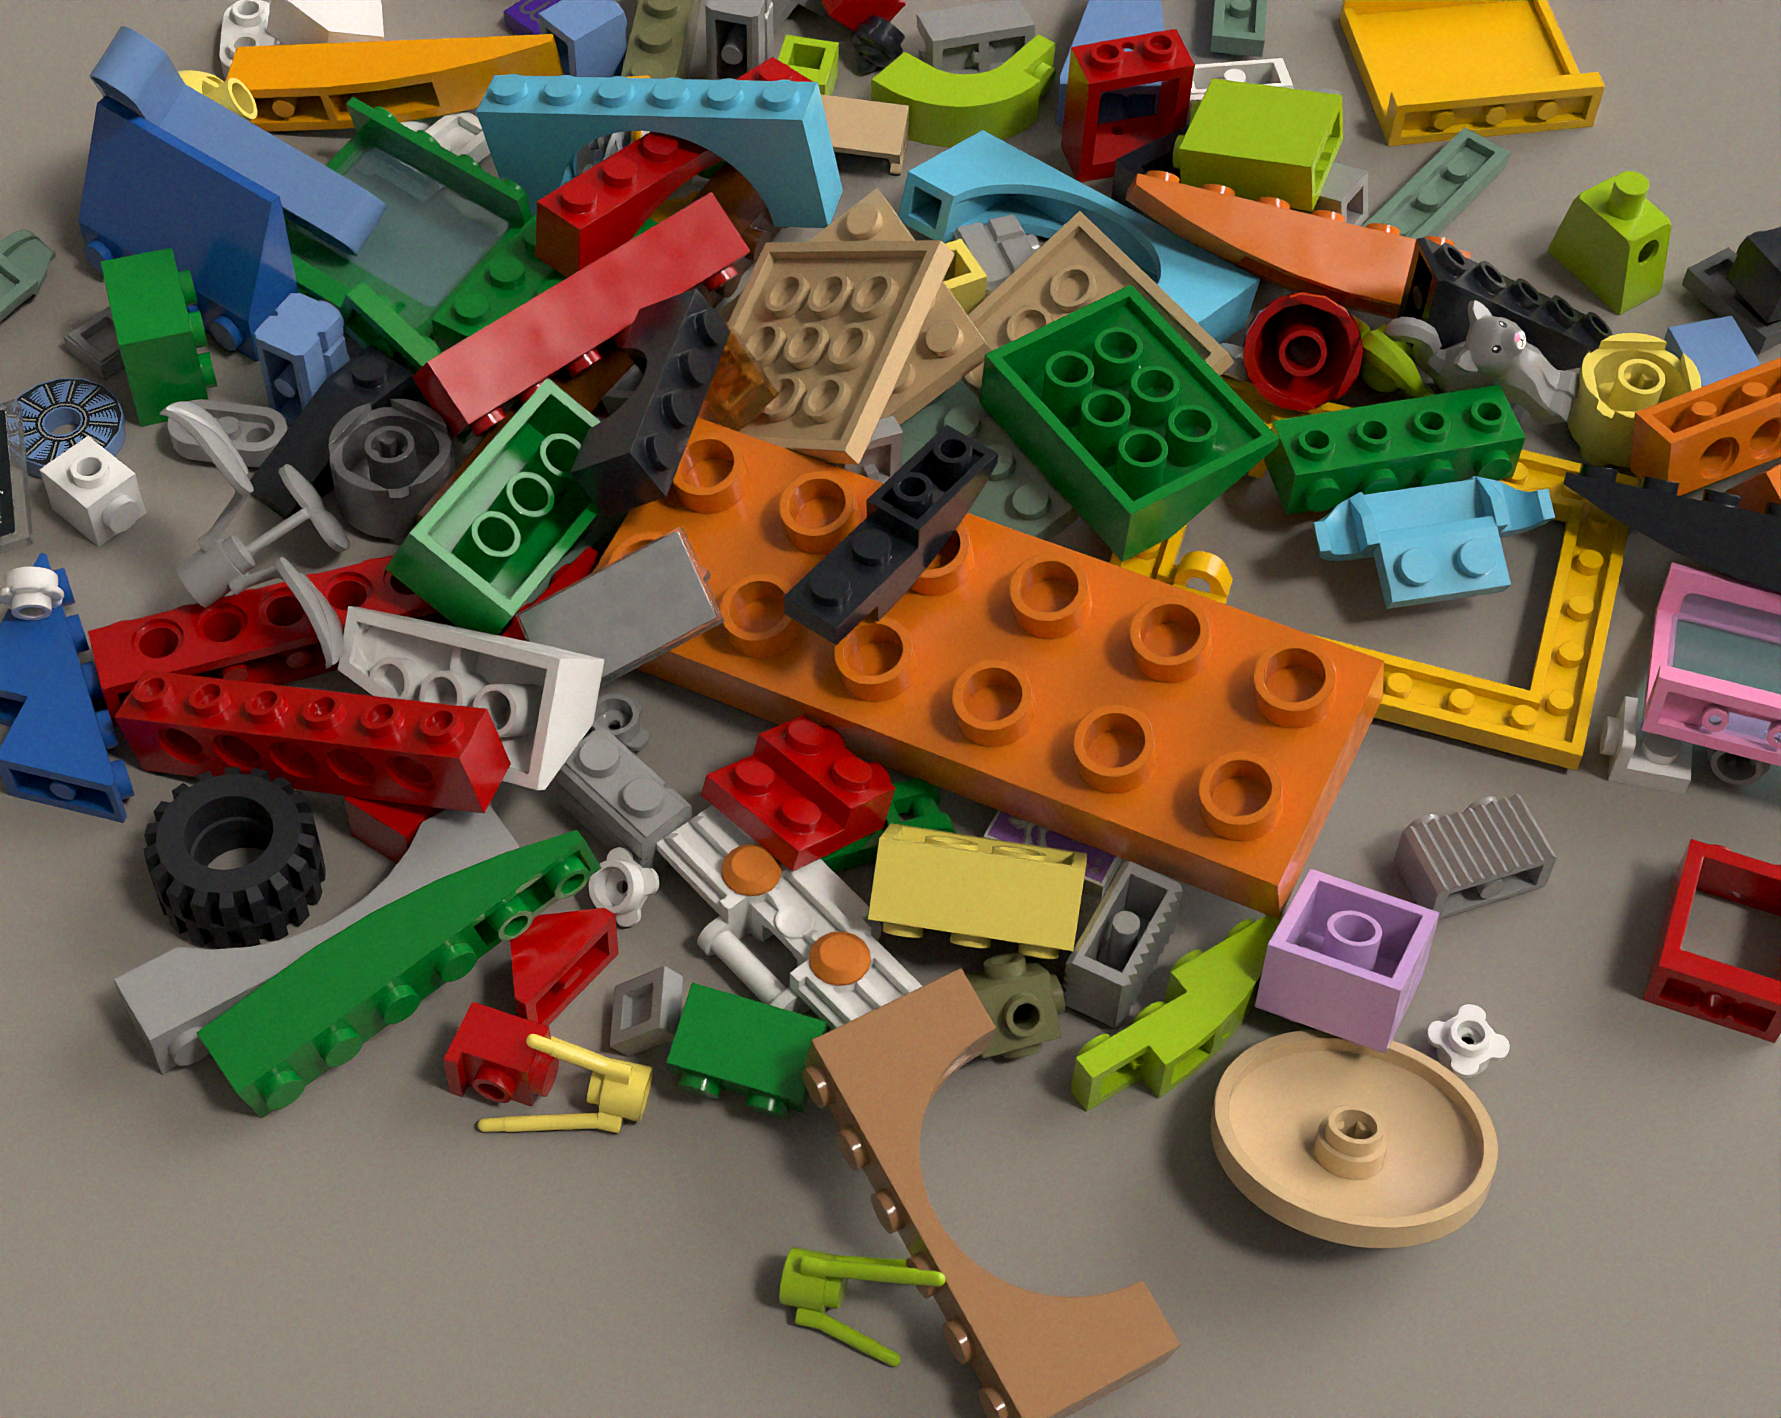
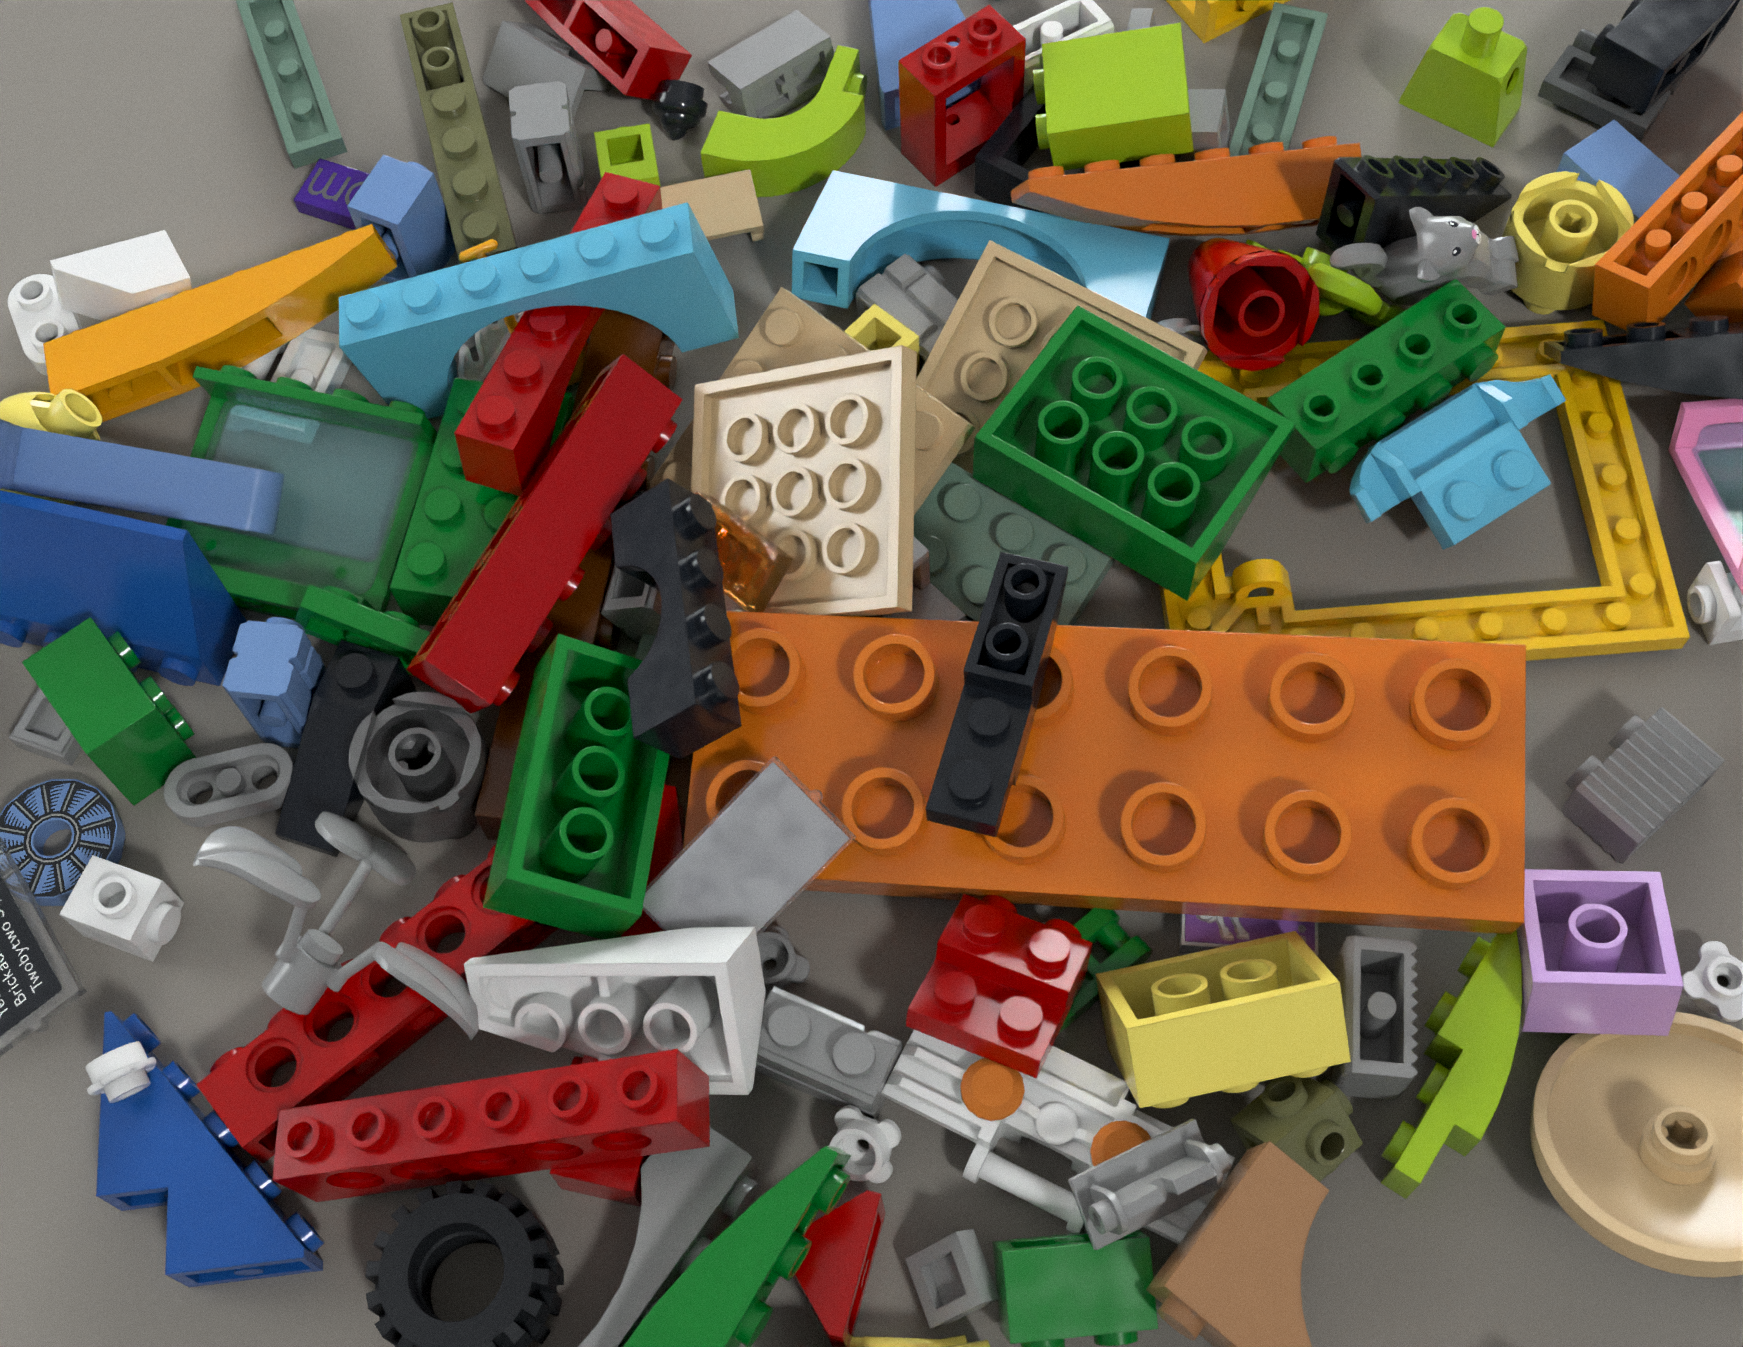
camera: 15 degrees left, 10 degrees up
(841, 975) = (1147, 1182): none -> light grey hinge

